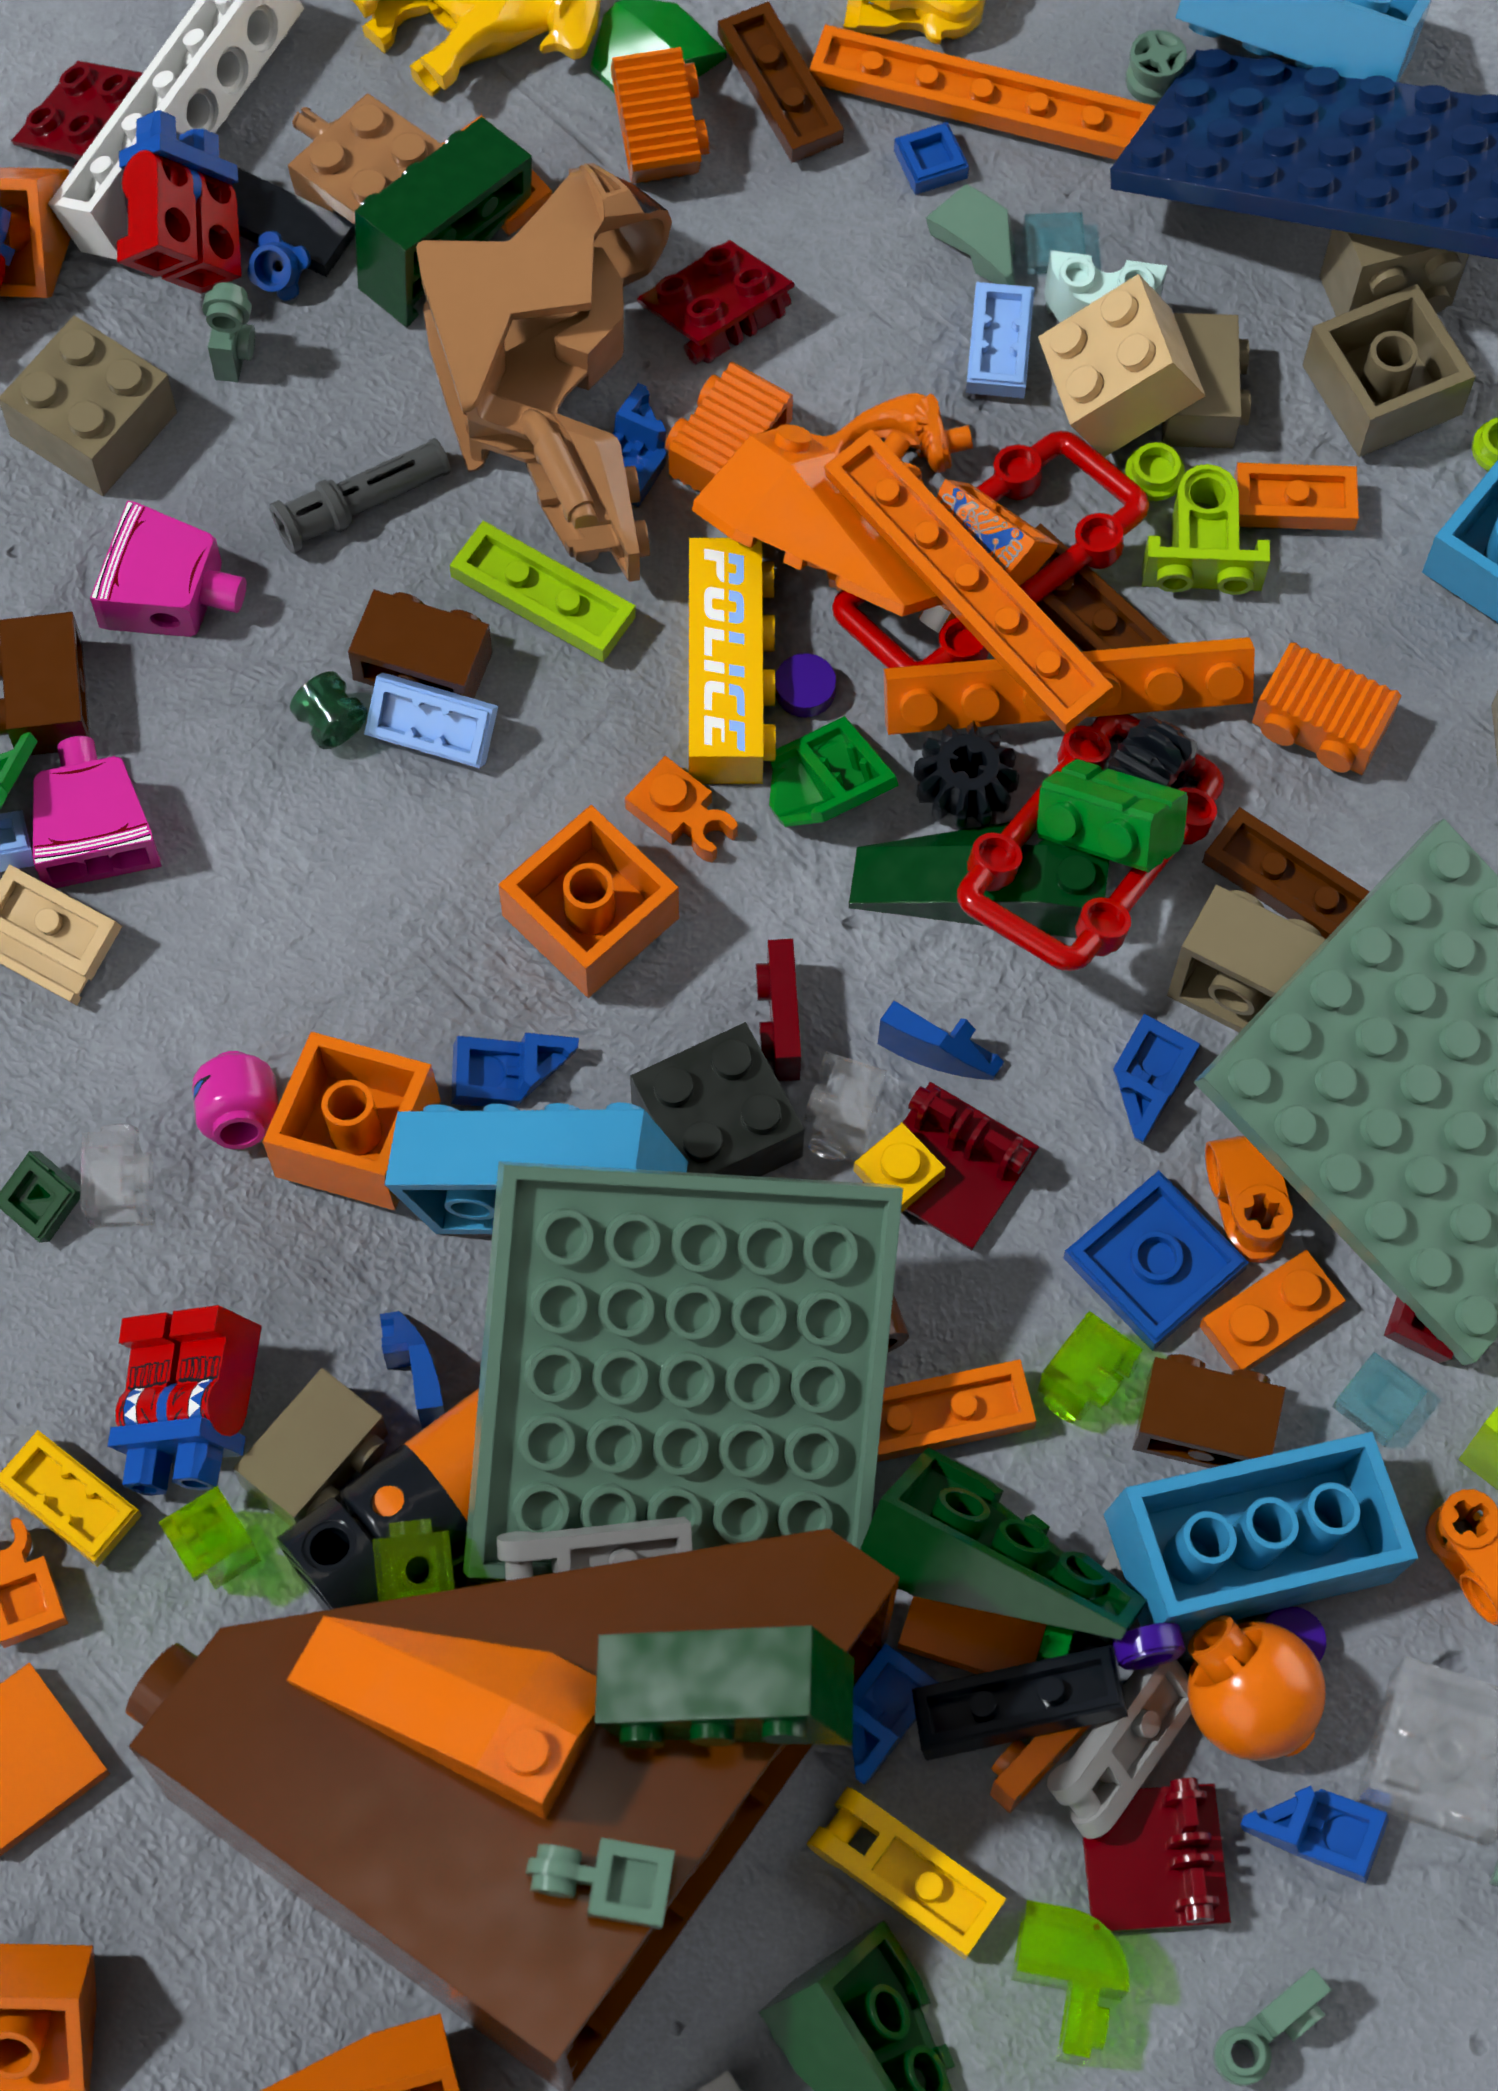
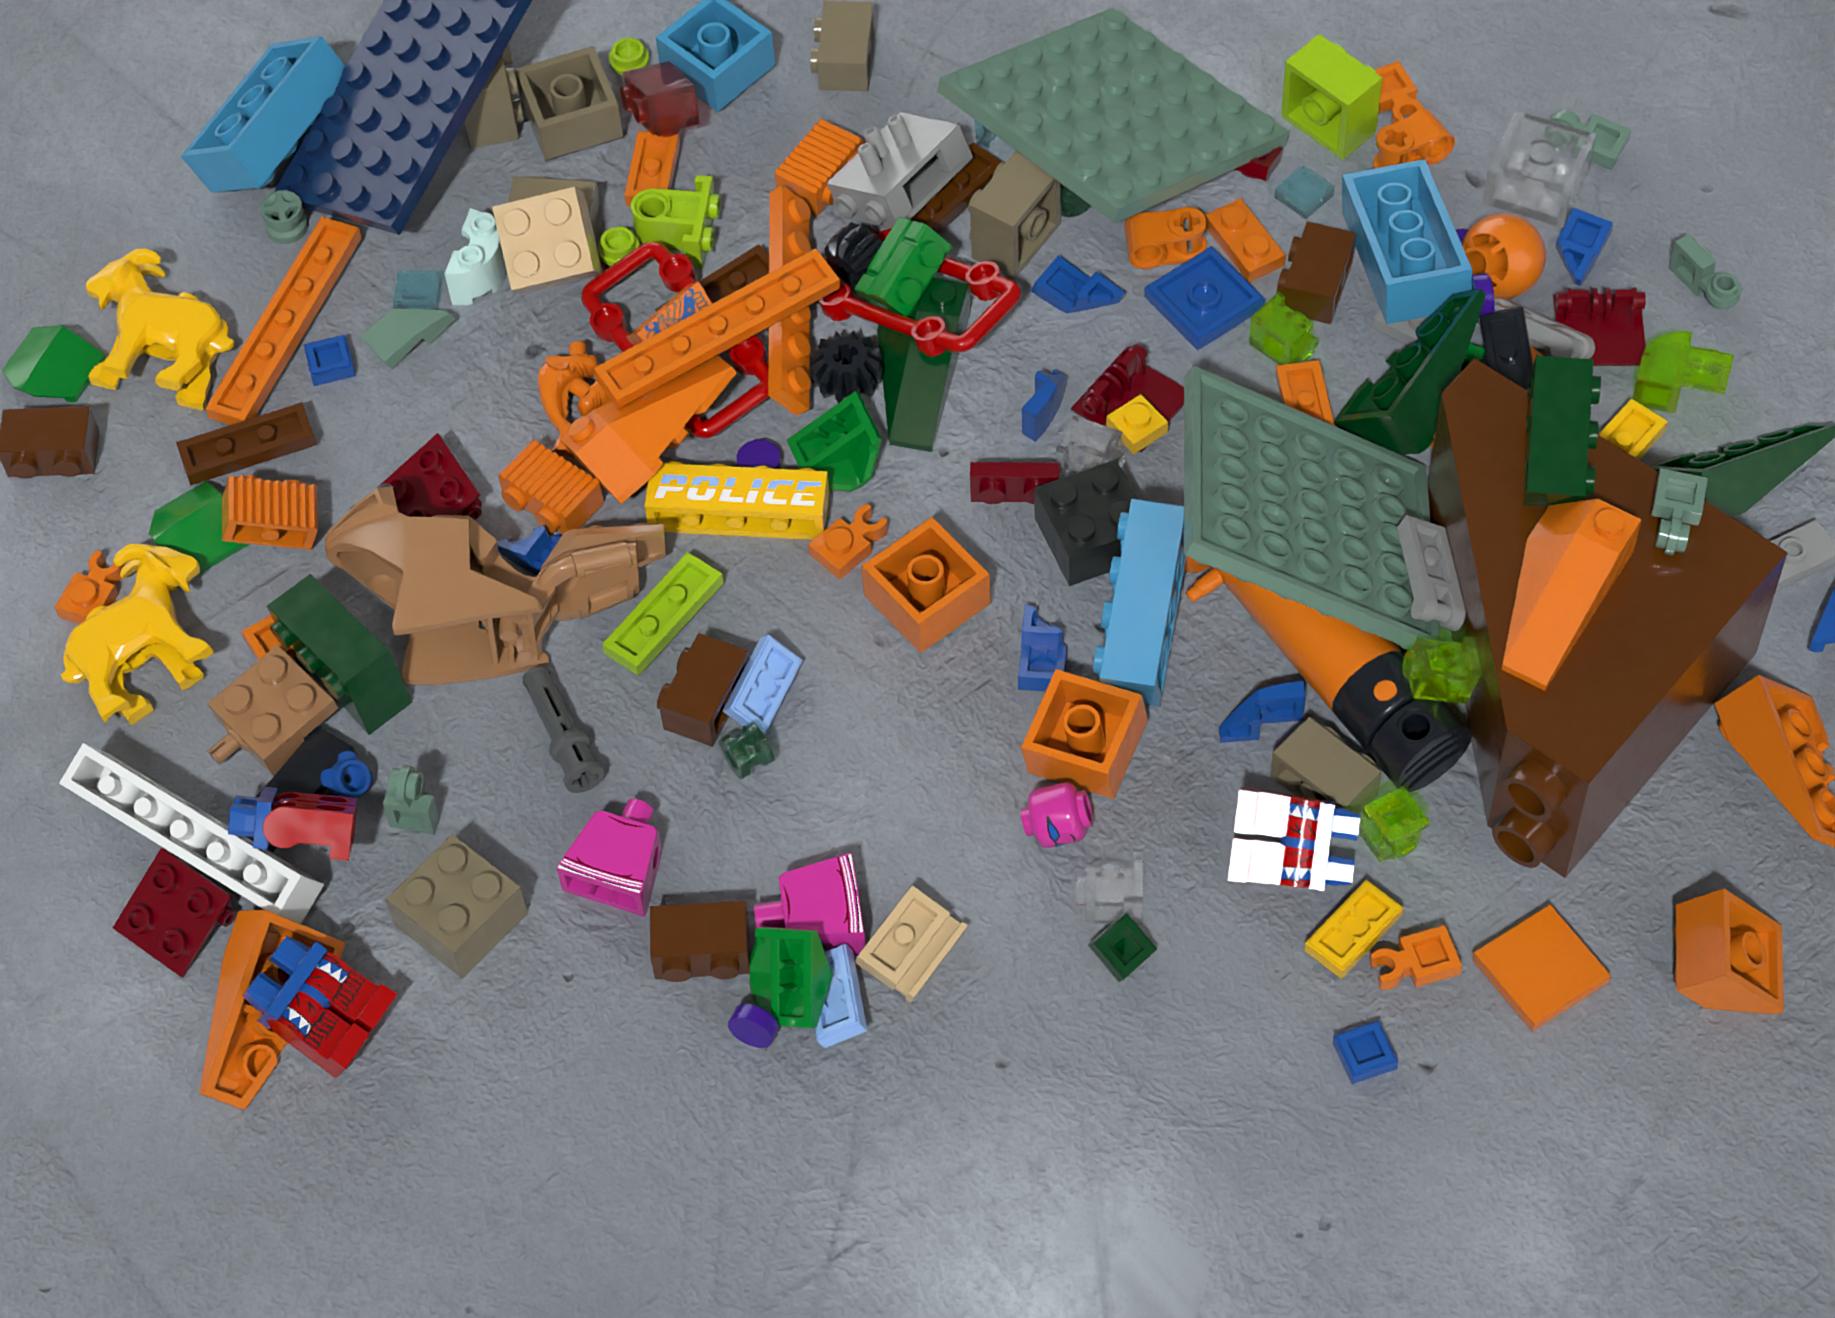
camera: 80 degrees left, 10 degrees down
(1000, 340) = (496, 326): light blue plate -> none
(1314, 805) = (899, 169): none -> light grey piece
(1405, 479) = (660, 98): none -> clear red brick

